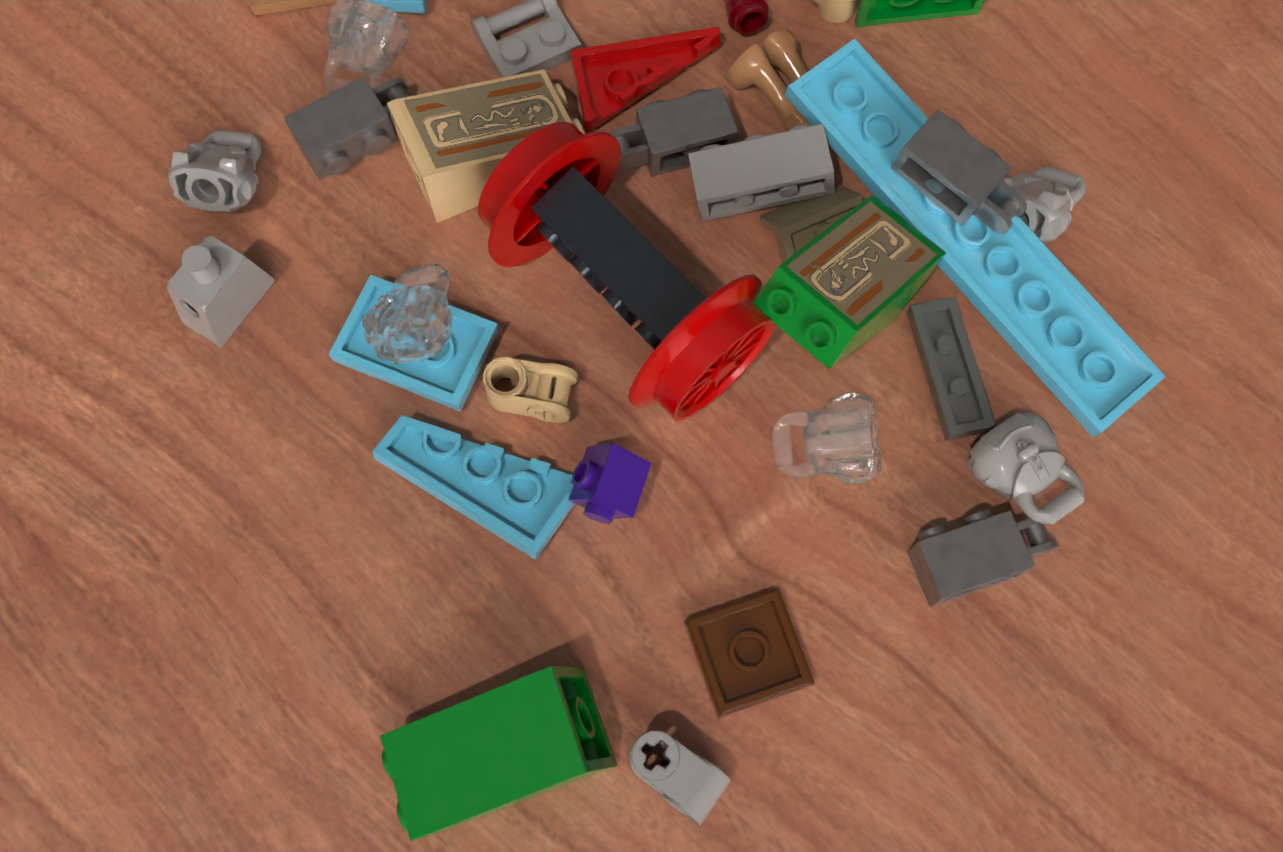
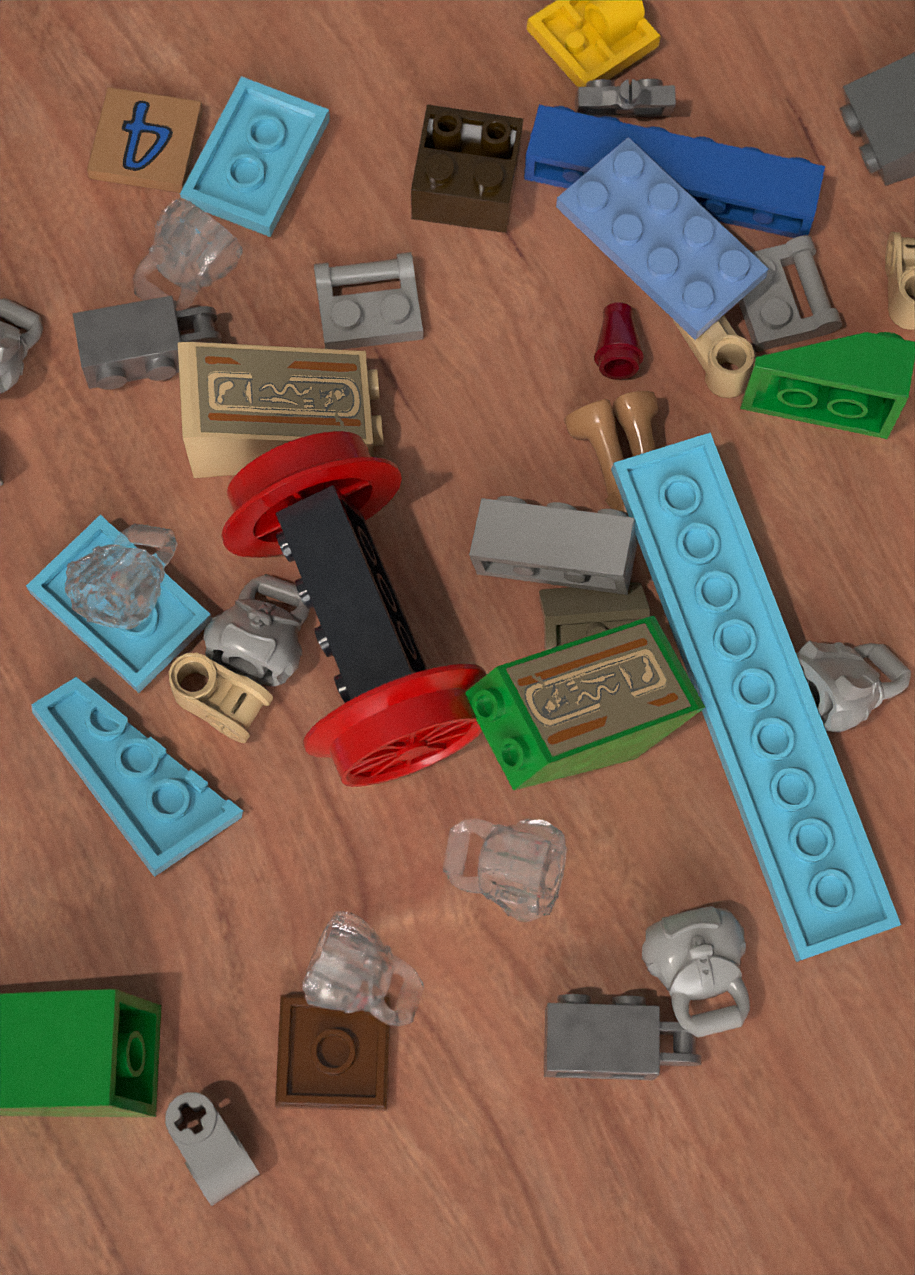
camera: 20 degrees right, 0 degrees up
(545, 327) = (257, 635): none -> light grey piece
(609, 482) = (256, 824): dark purple brick -> none
(623, 72) = (455, 378): red wing -> none
(674, 129) = (481, 466): flat silver brick -> none
(742, 576) = (355, 970): none -> clear piece
(950, 369) = (671, 831): dark grey plate -> none
(959, 174) = (755, 624): flat silver brick -> none

